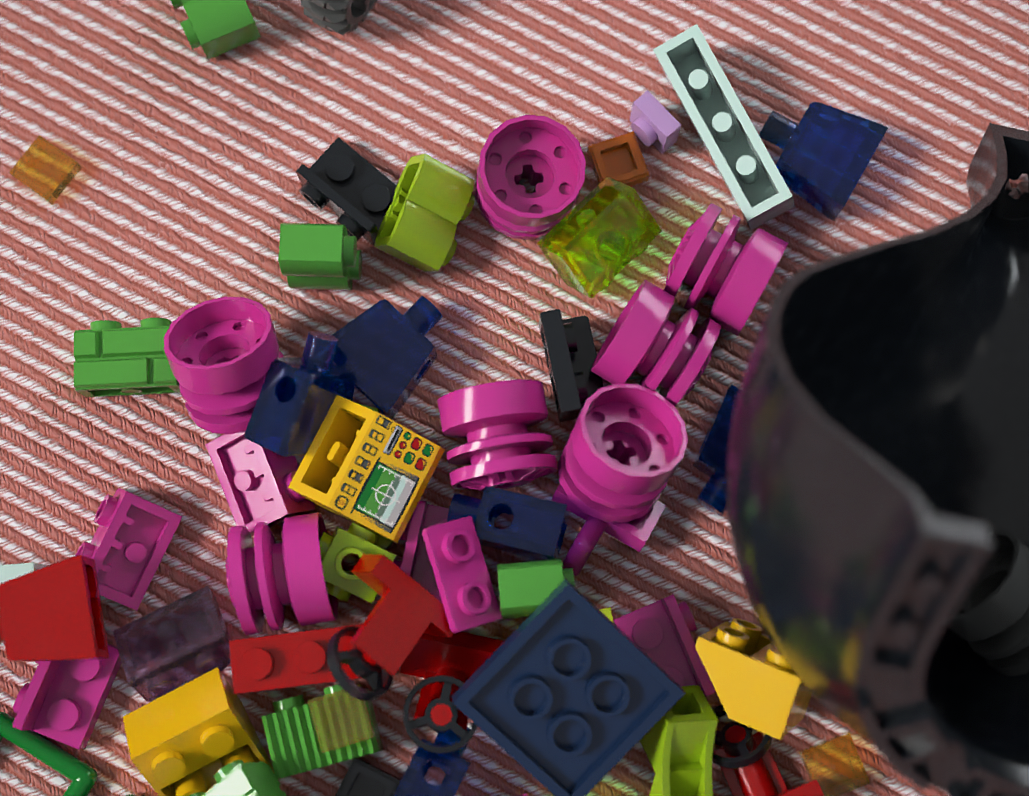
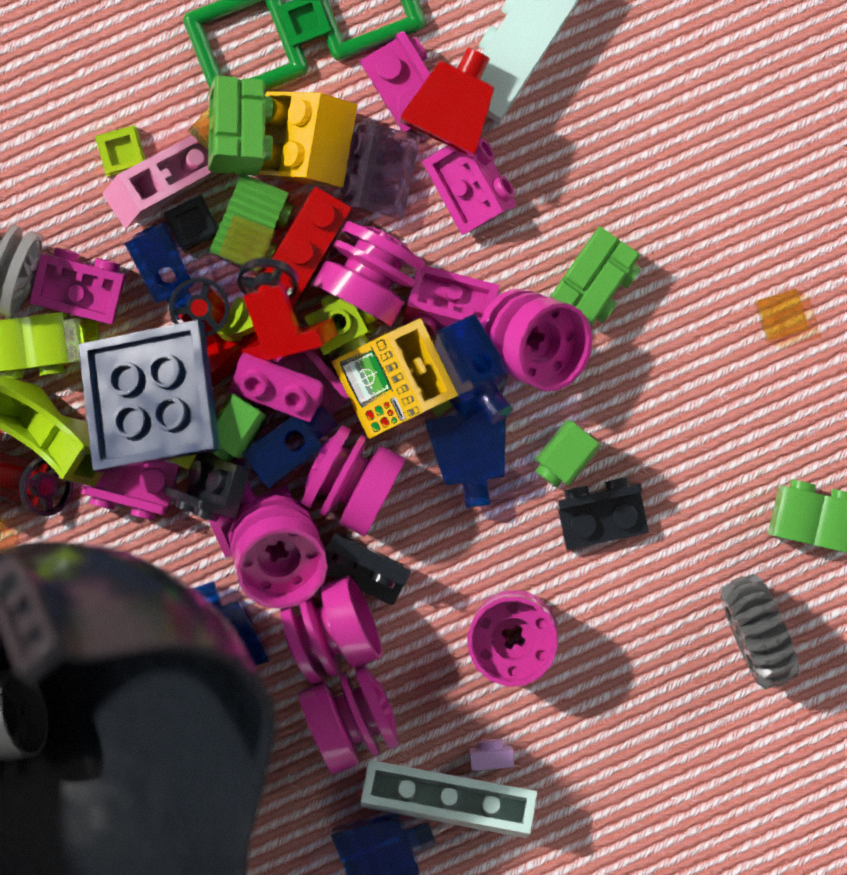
camera: 125 degrees right, 10 degrees up
(424, 663) = (238, 322): none -> lime tile
(426, 213) = (545, 549): lime brick -> none
(607, 213) = (437, 654): clear neon green brick -> none
(610, 564) = (213, 488): none -> black bracket
(619, 159) = (484, 711): orange tile -> none
(753, 678) = (72, 518): yellow slope -> none

